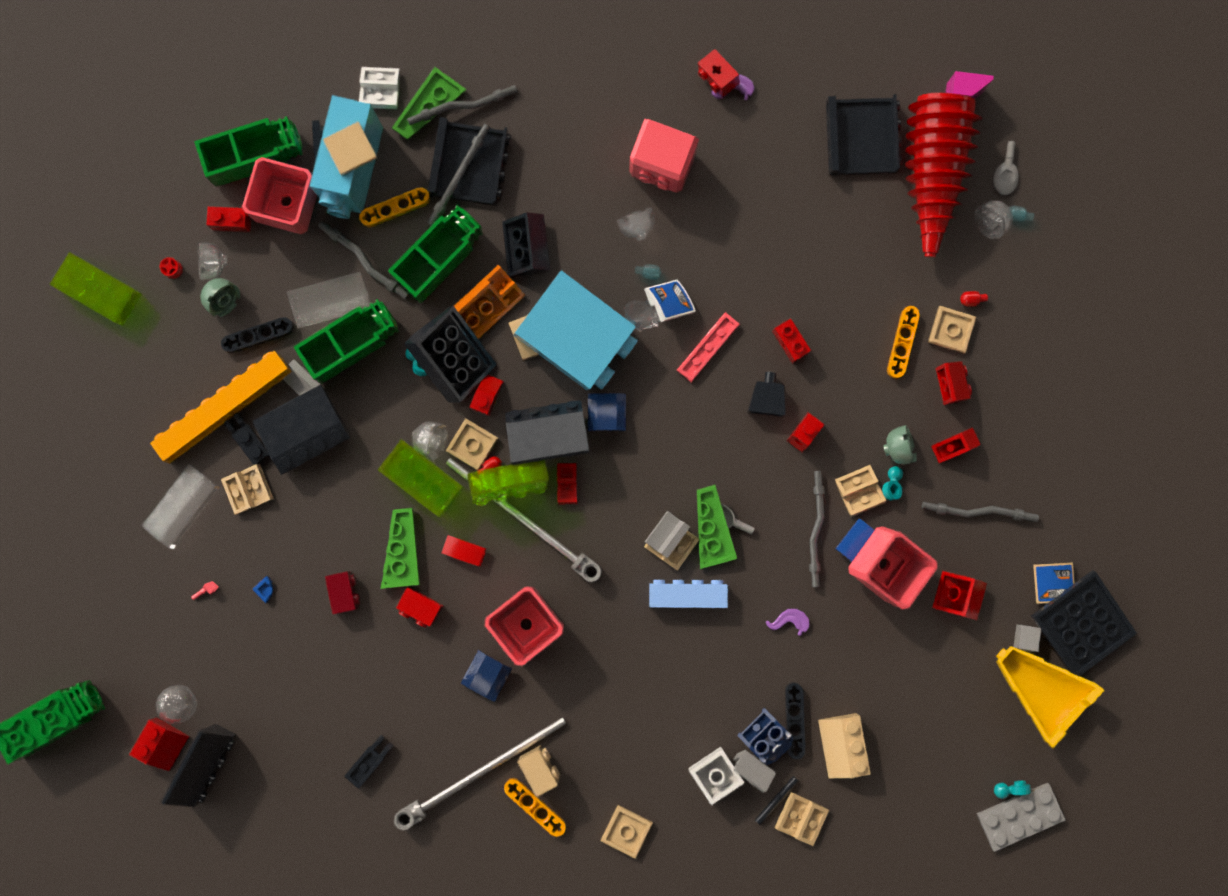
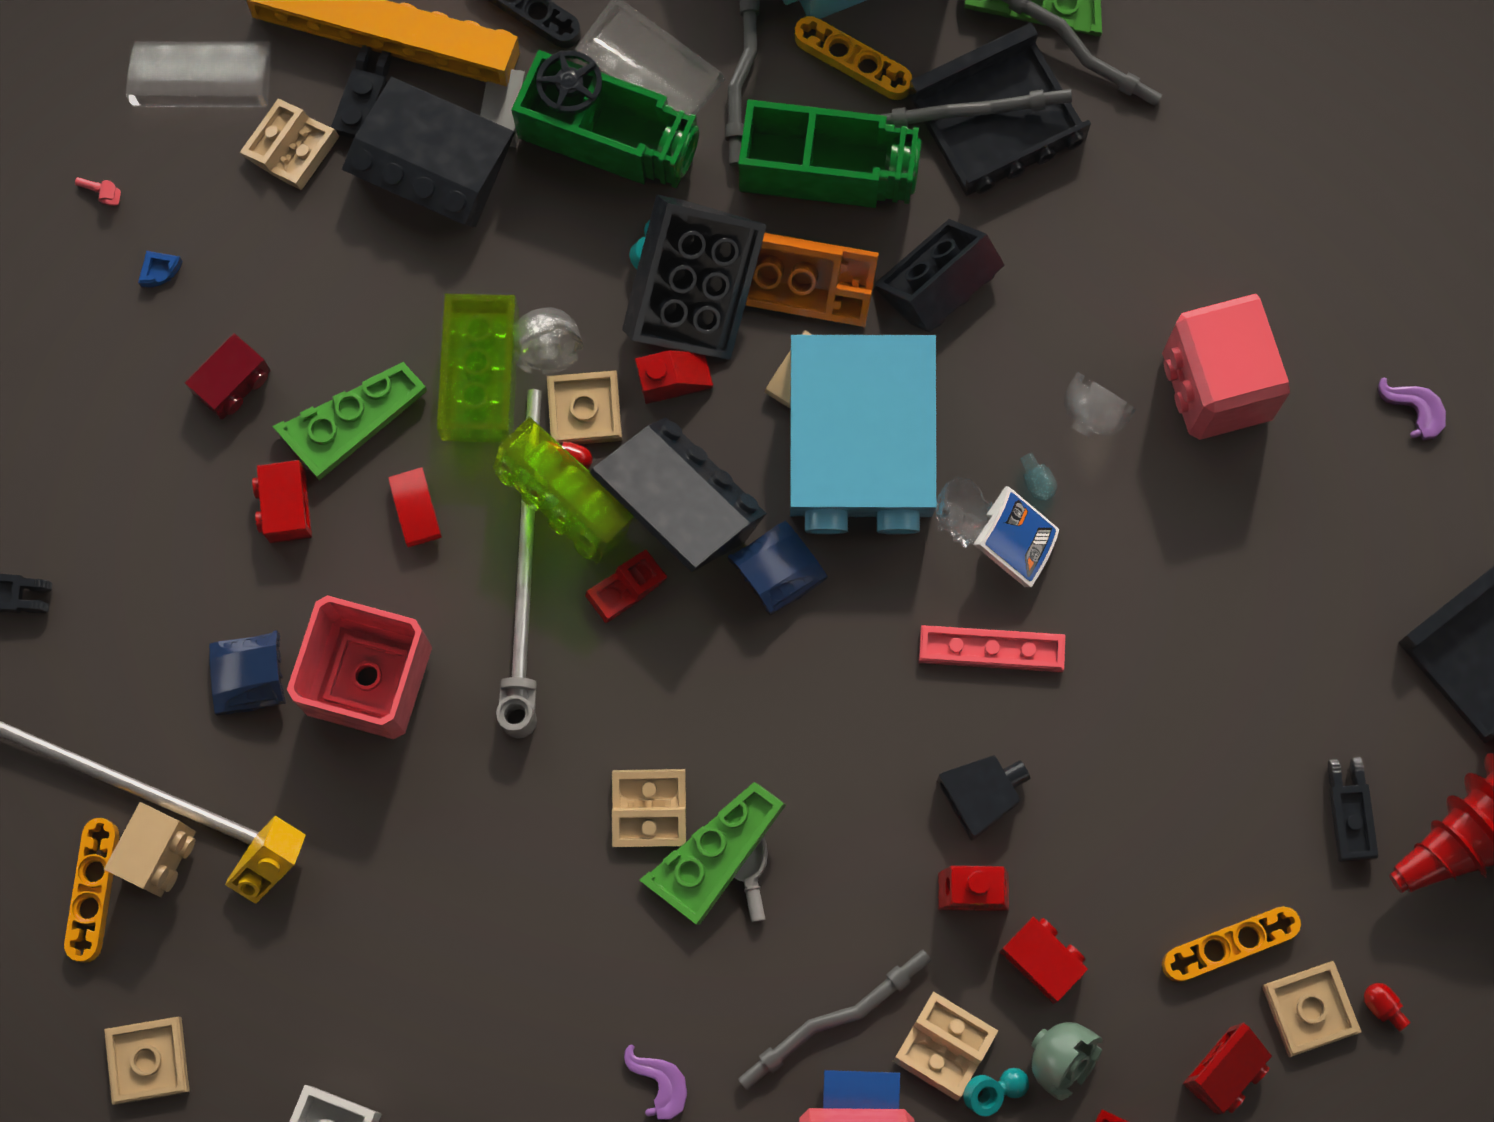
camera: 55 degrees right, 10 degrees down
(320, 344) = (569, 82): none -> black wheel
(578, 722) = (266, 859): none -> yellow slope
(667, 534) = (656, 787): light grey panel -> none
(688, 595) = (584, 888): light blue brick -> none
(718, 73) = (1416, 364): red brick -> none
(791, 341) = (1097, 765): red brick -> none
(855, 424) = (1045, 959): none -> red brick
(886, 250) = (1352, 813): none -> black hinge

